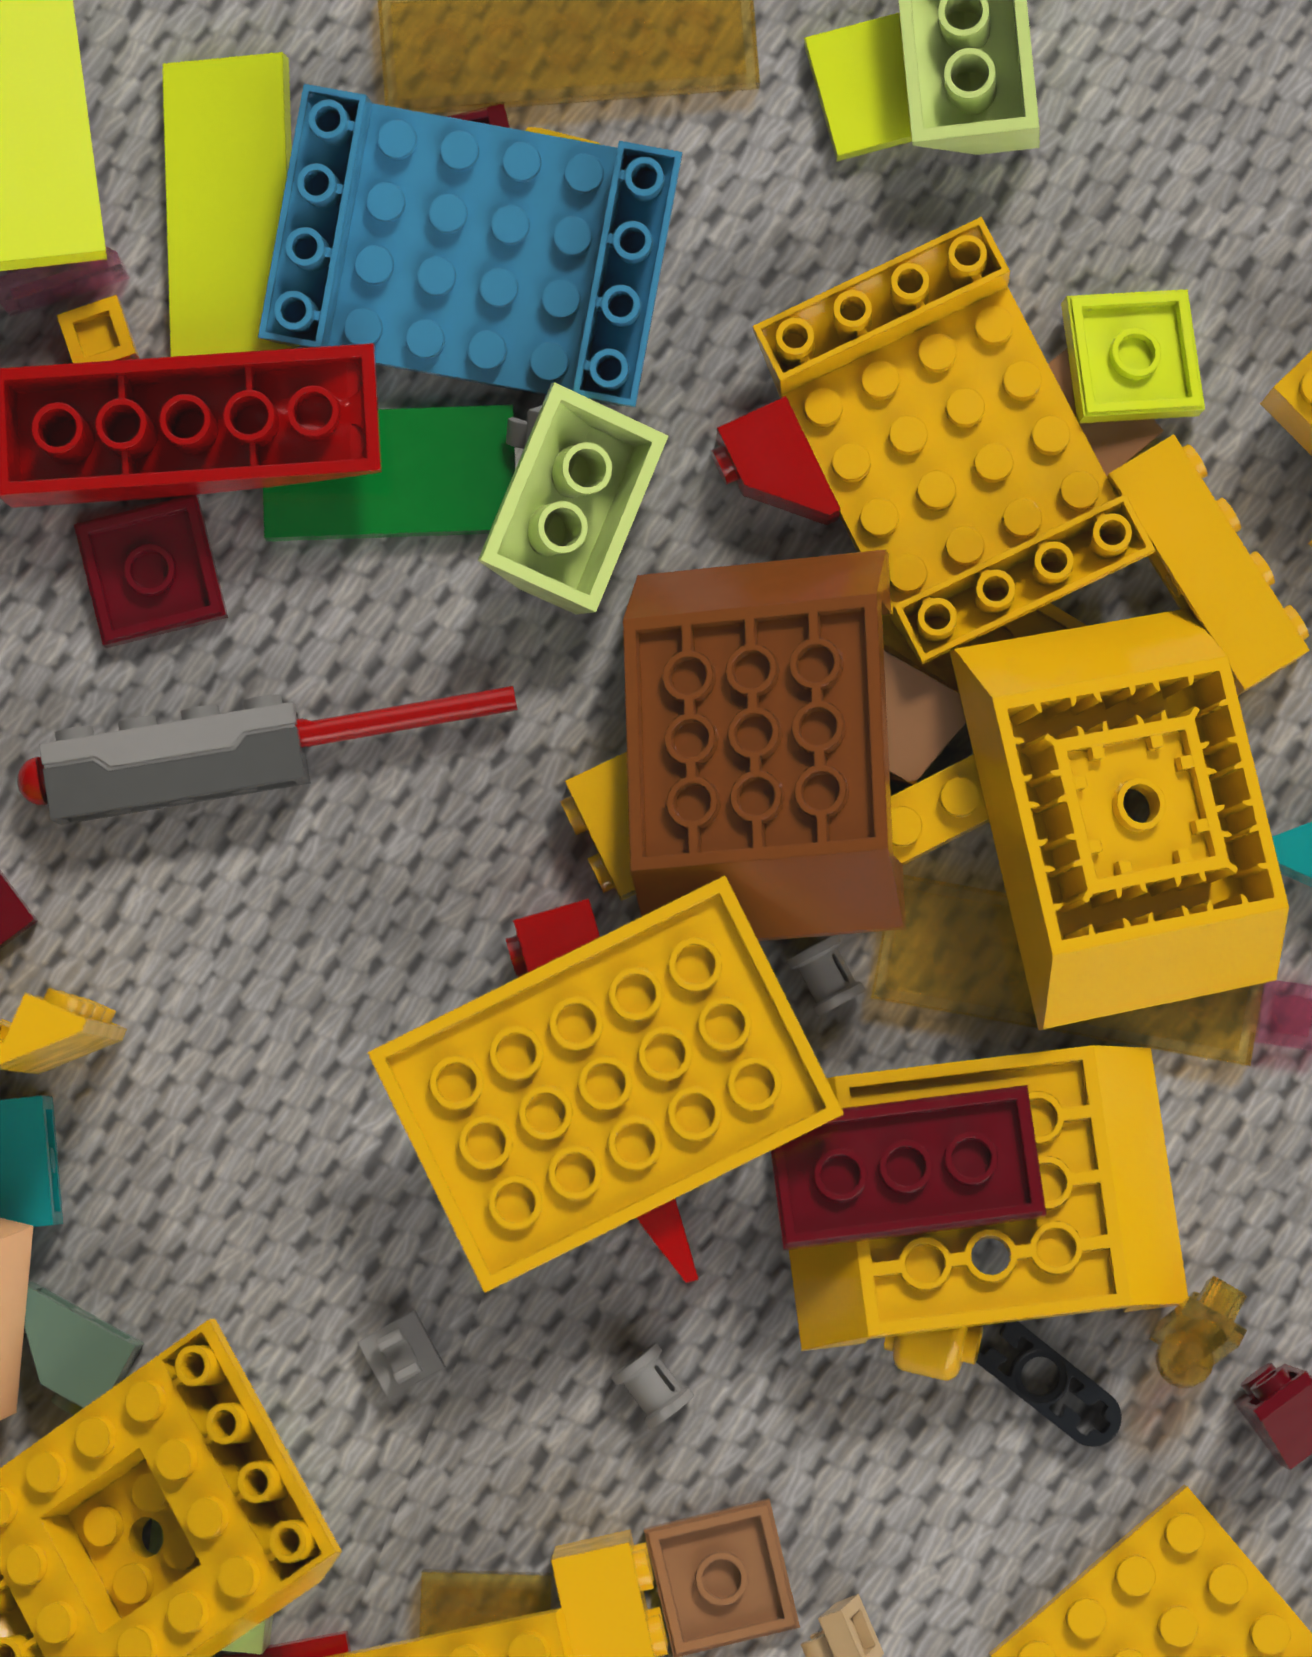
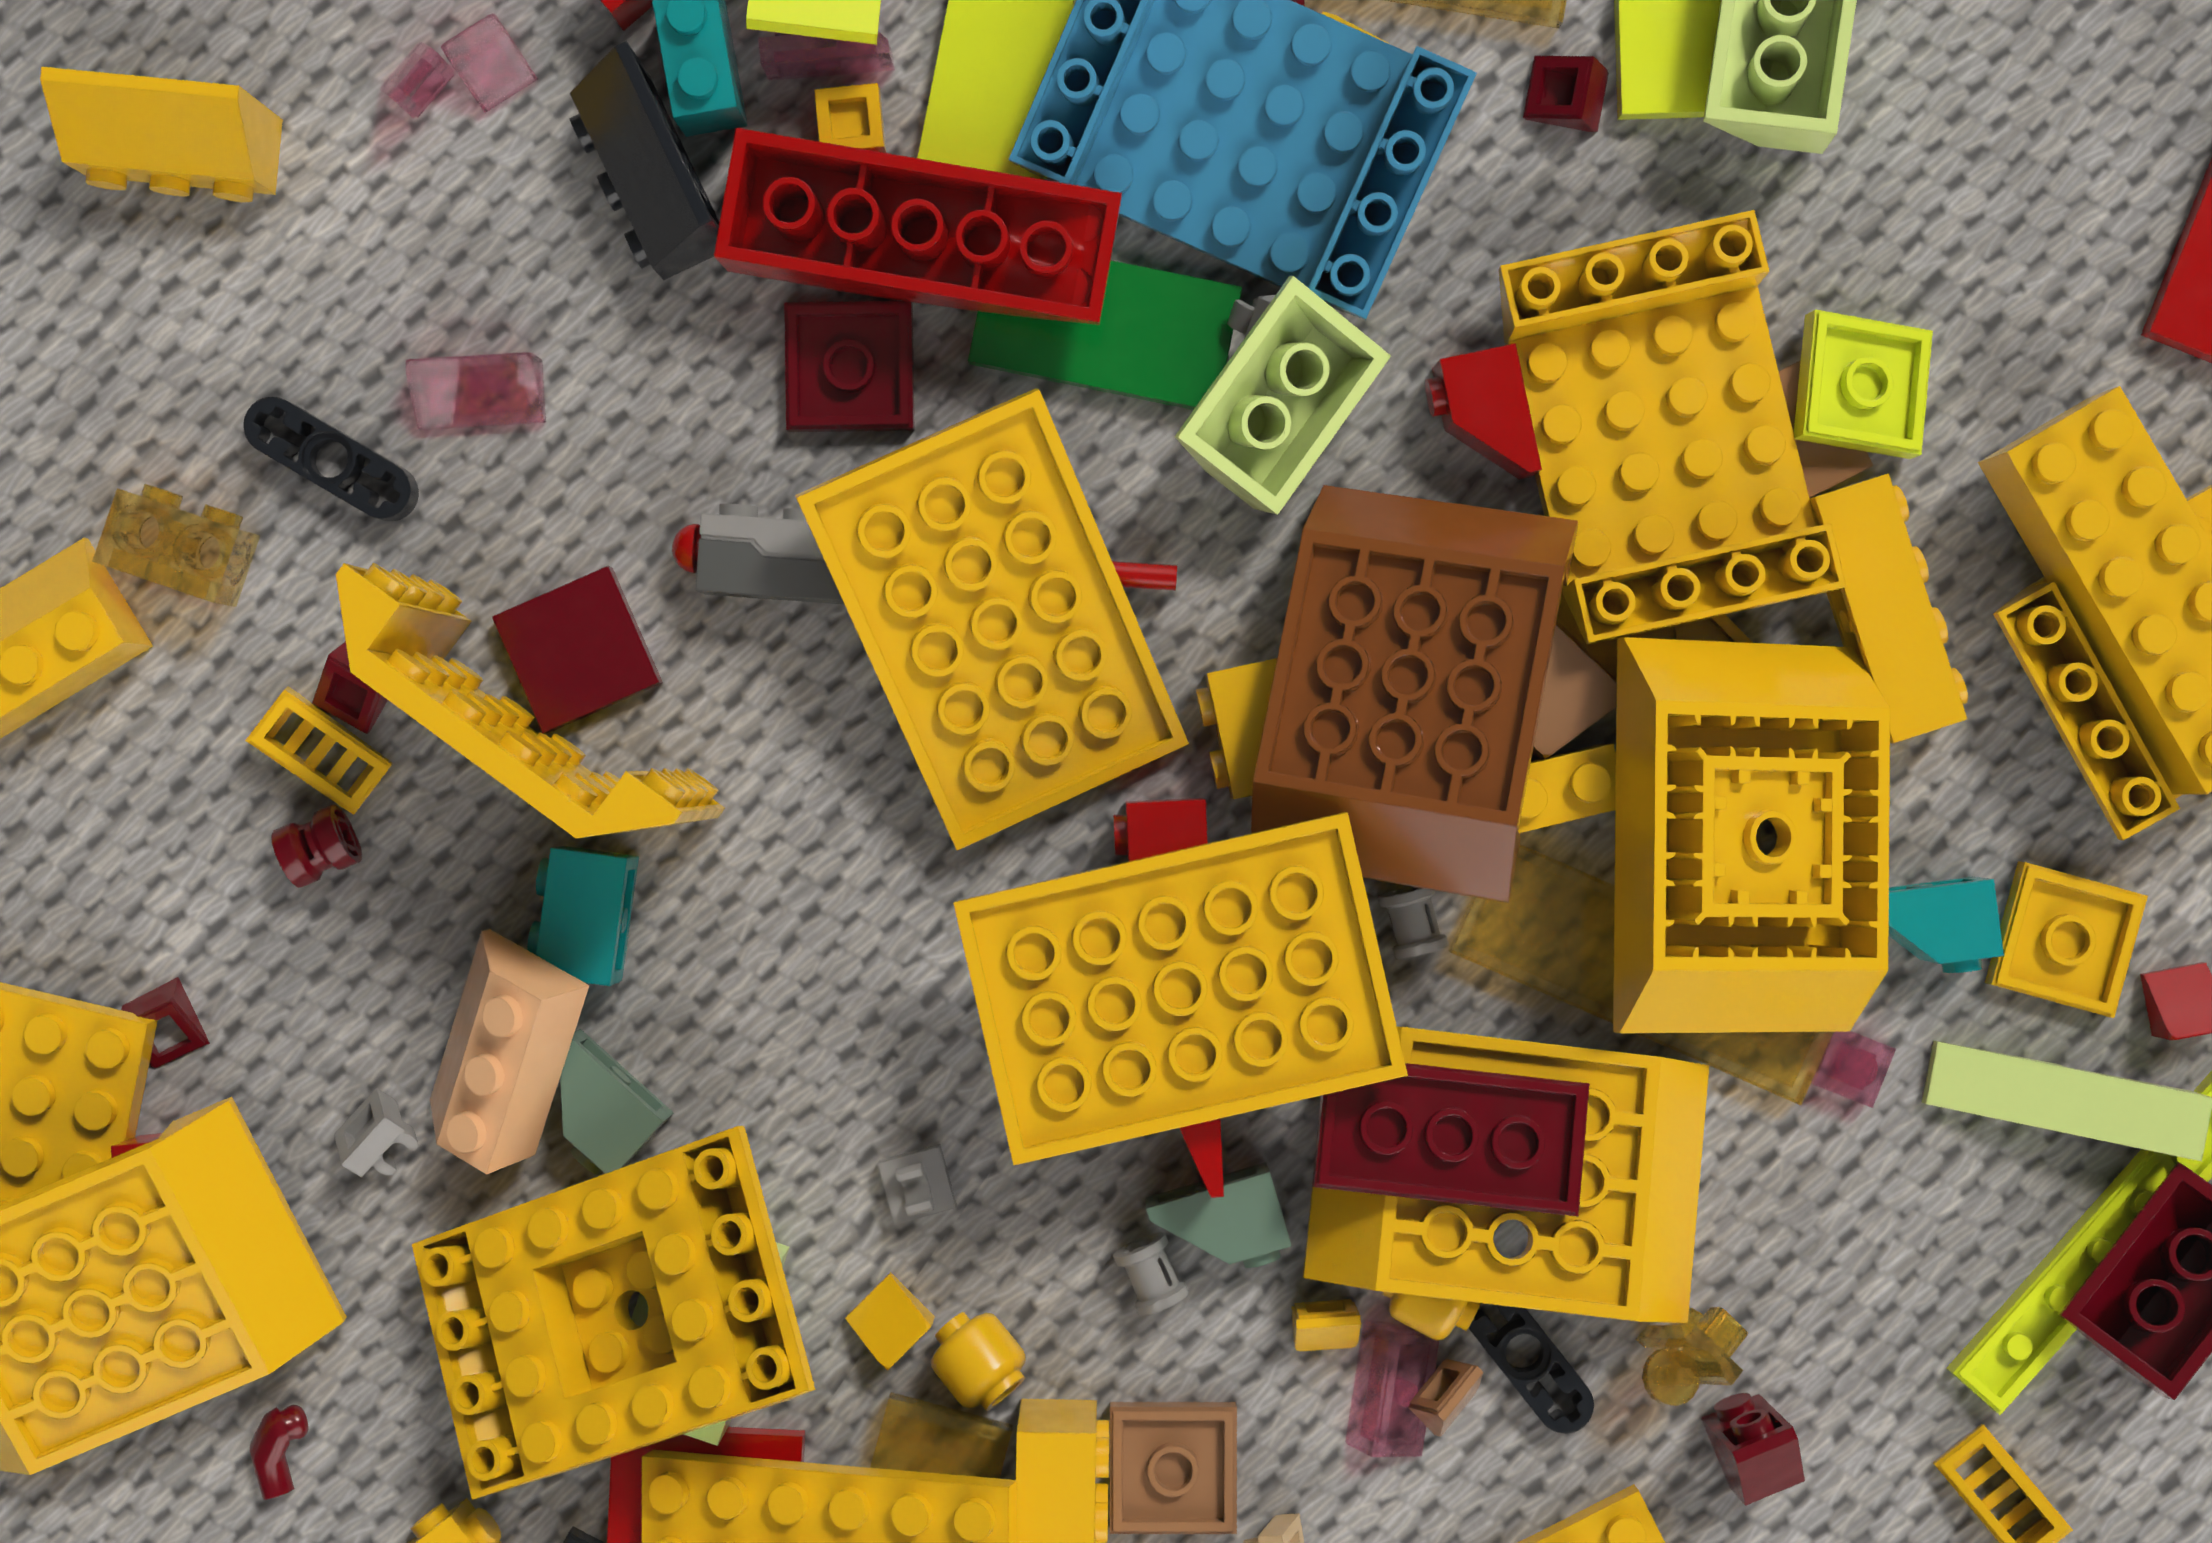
camera: 15 degrees right, 5 degrees up
(346, 778) = (993, 618): none -> yellow plate
(404, 1496) = (890, 1320): none -> yellow slope
(501, 1513) = (978, 1360): none -> yellow head
(715, 1312) = (1235, 1227): none -> sand green slope
(781, 147) = (1566, 92): none -> dark red slope
(838, 1399) = (1325, 1325): none -> yellow slope
(920, 1446) = (1389, 1373): none -> clear pink slope
(974, 1436) = (1446, 1394): none -> medium nougat slope

